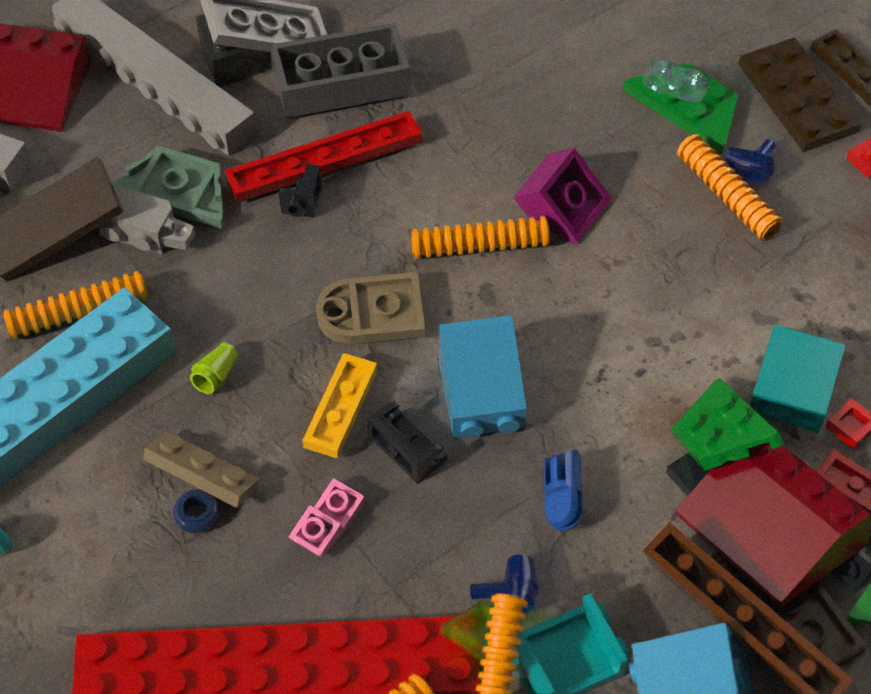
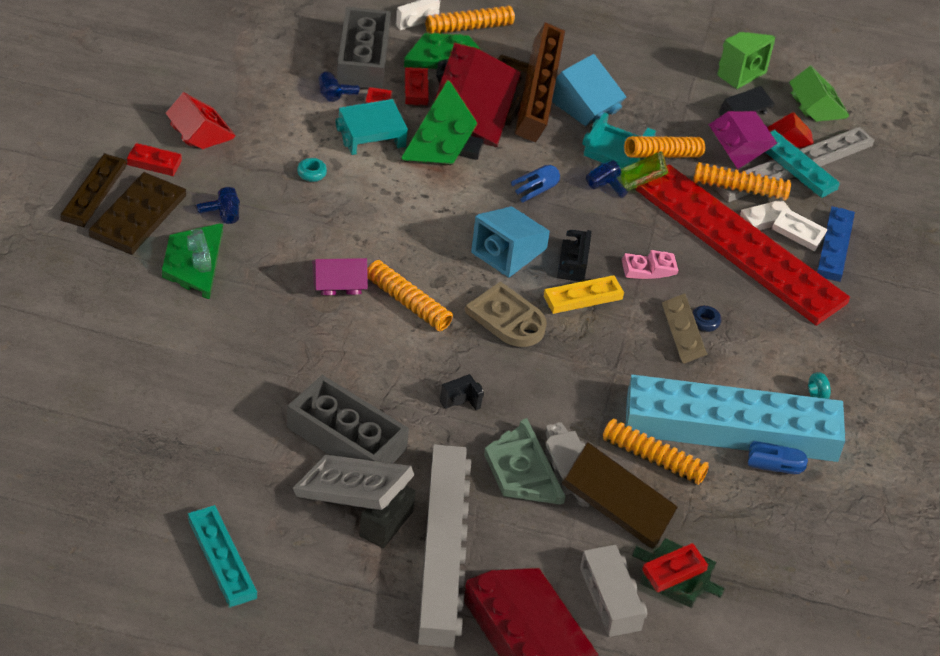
camera: 135 degrees left, 10 degrees down
(213, 369) = (622, 361): lime cone -> none
(330, 153) = (421, 404): red plate -> none
(730, 187) = (256, 207): light orange piece -> none
(762, 290) = (312, 163): none -> teal piece

